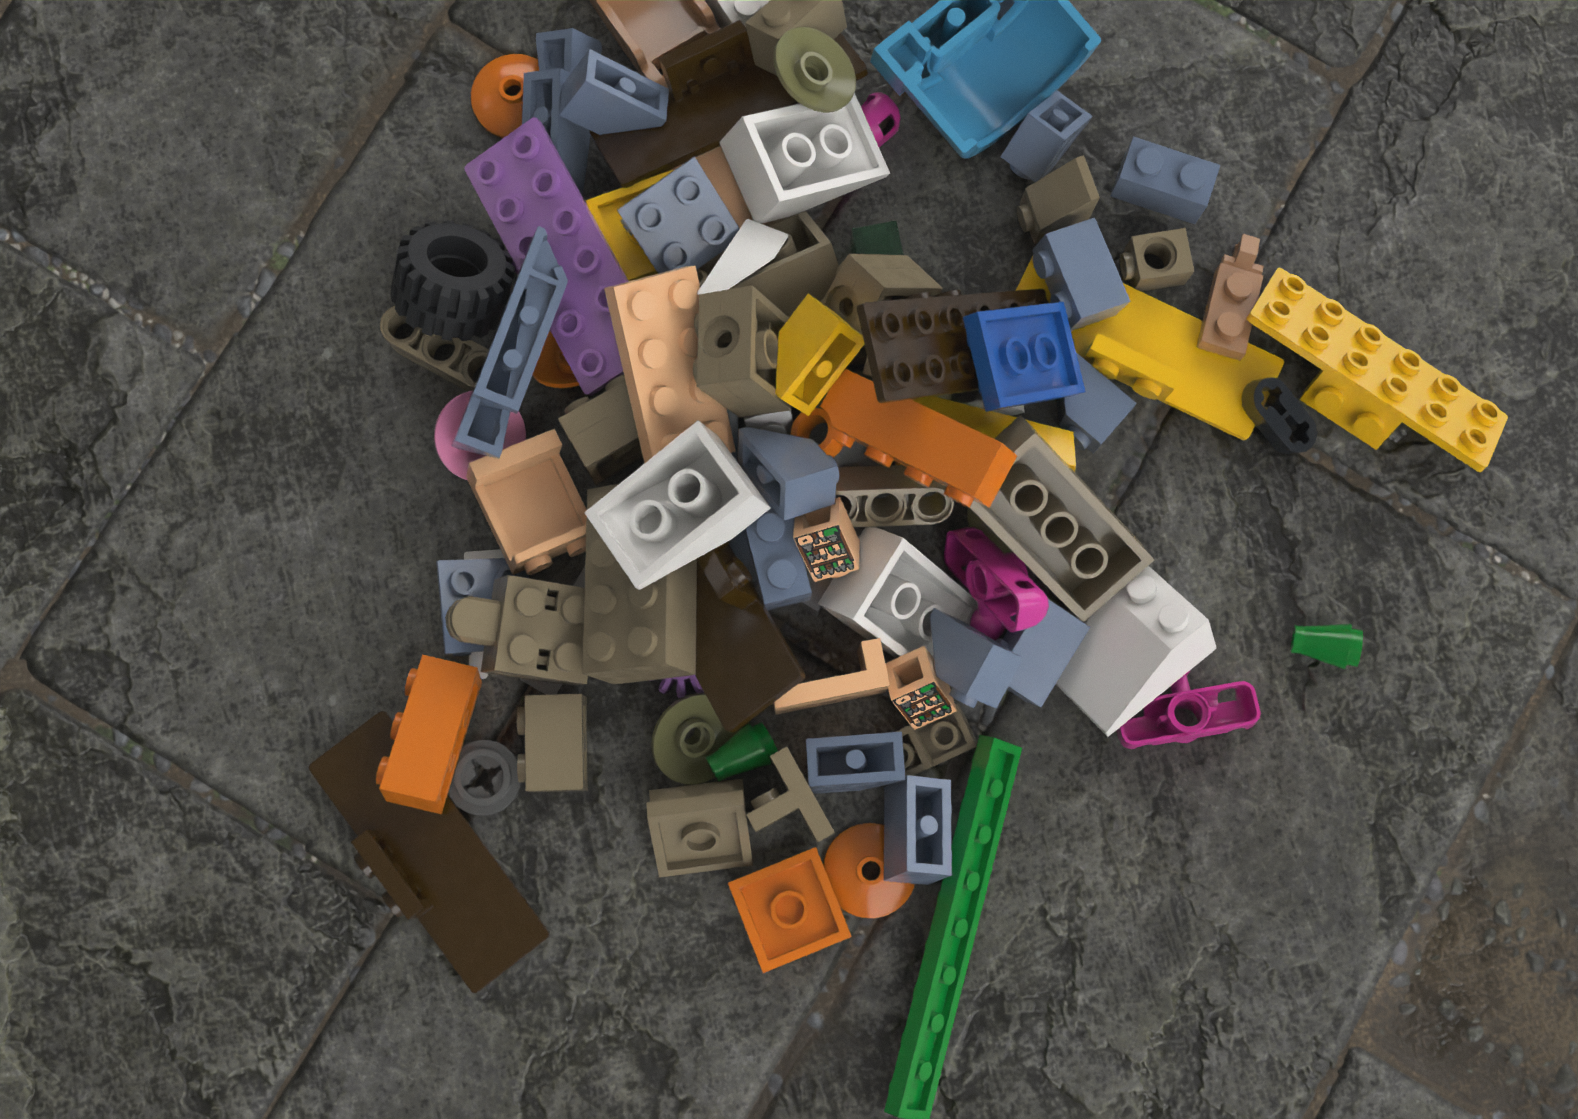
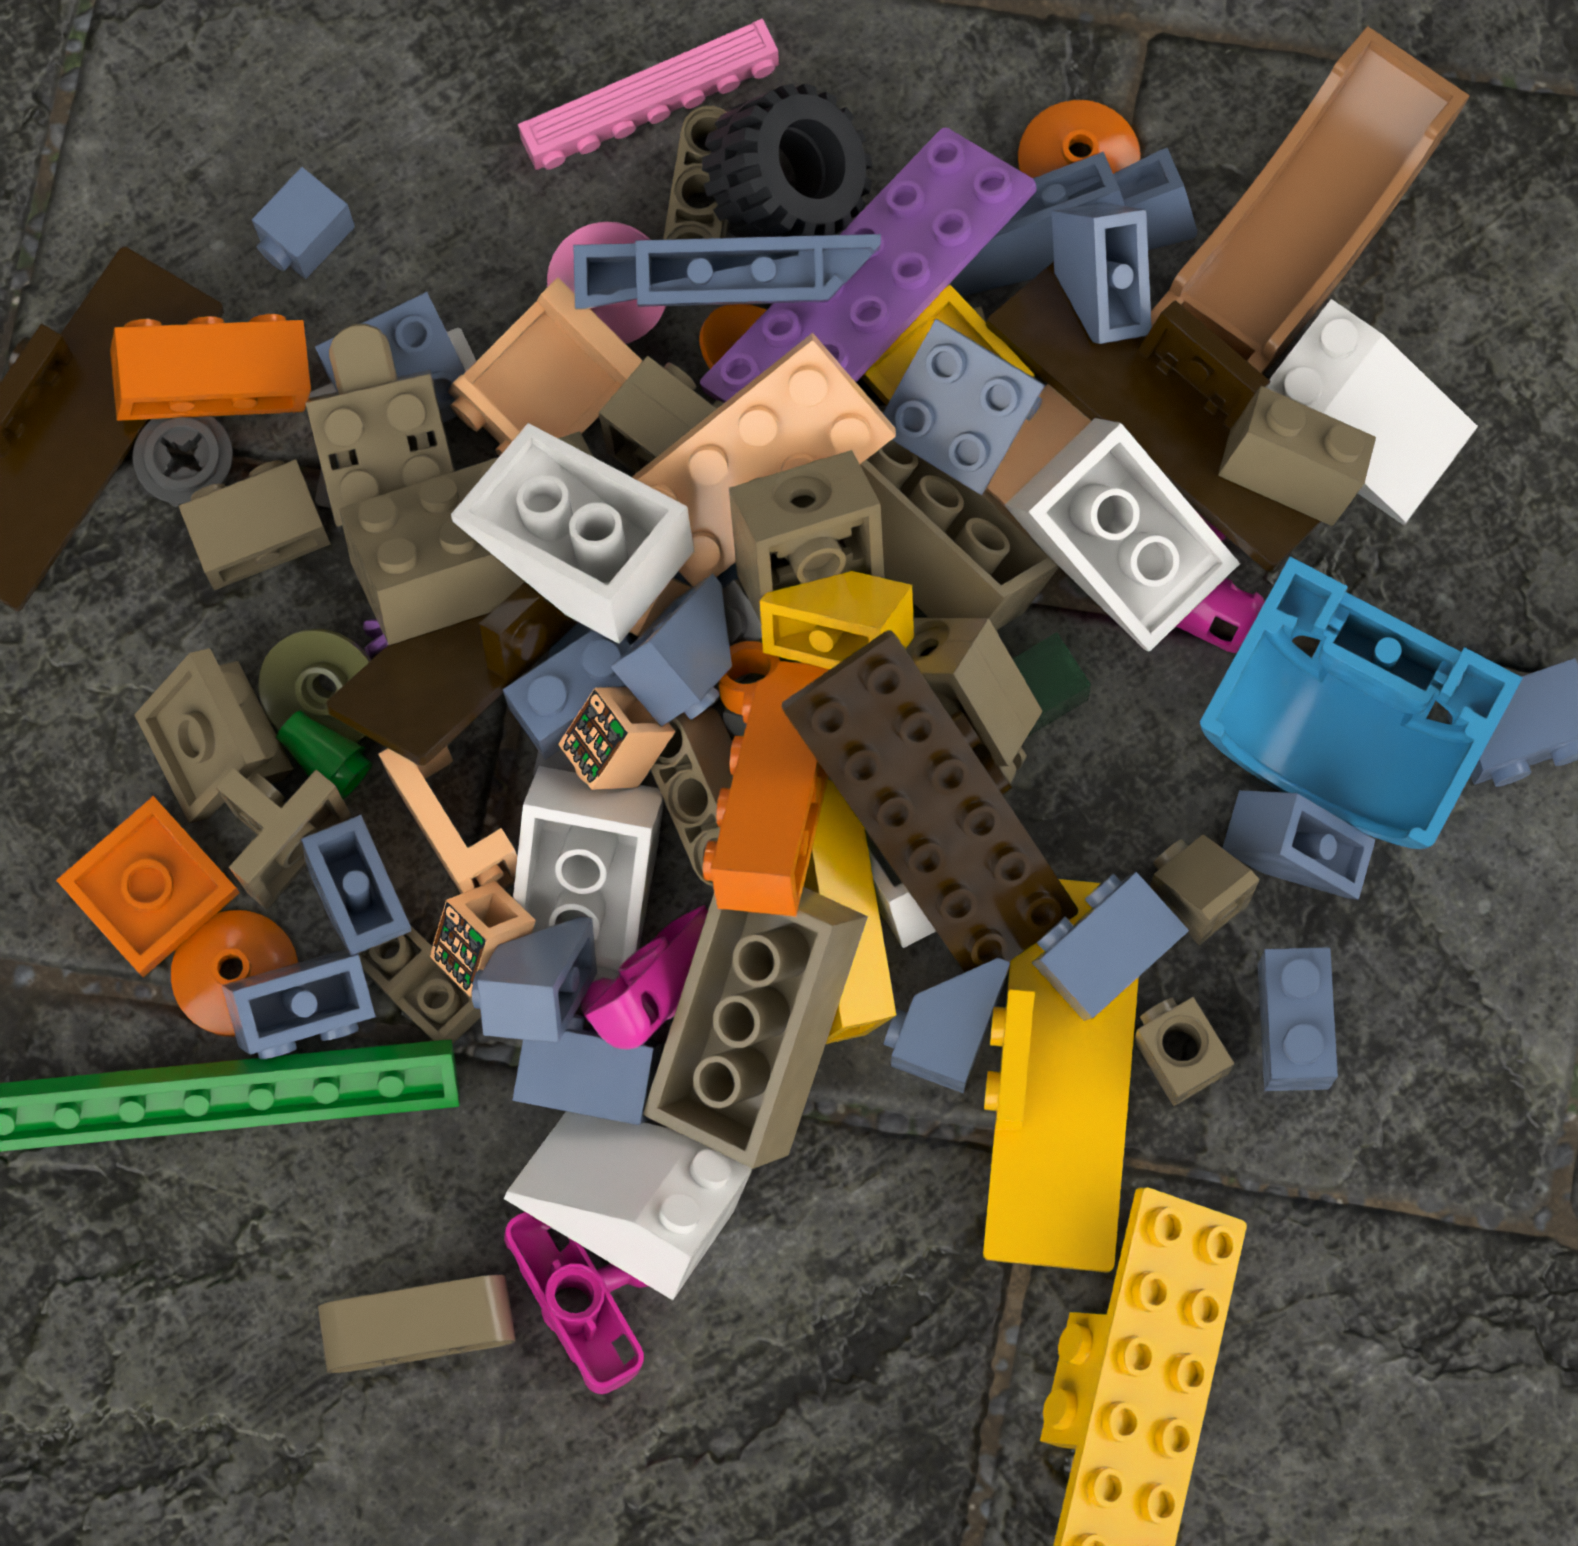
camera: 75 degrees right, 5 degrees down
(346, 633) = (302, 224): none -> sand blue brick
(351, 360) = (649, 95): none -> bright pink piece
(747, 252) = (954, 503): white sticker -> none
(814, 69) = (1255, 501): olive dish -> none
(1023, 355) = (949, 894): blue plate -> none
(1164, 829) = (416, 1323): none -> dark tan beam
(1230, 300) = (1181, 1166): medium nougat hinge -> none
(1282, 411) = (1044, 1292): black beam -> none
(1331, 644) = (743, 1462): green cone -> none

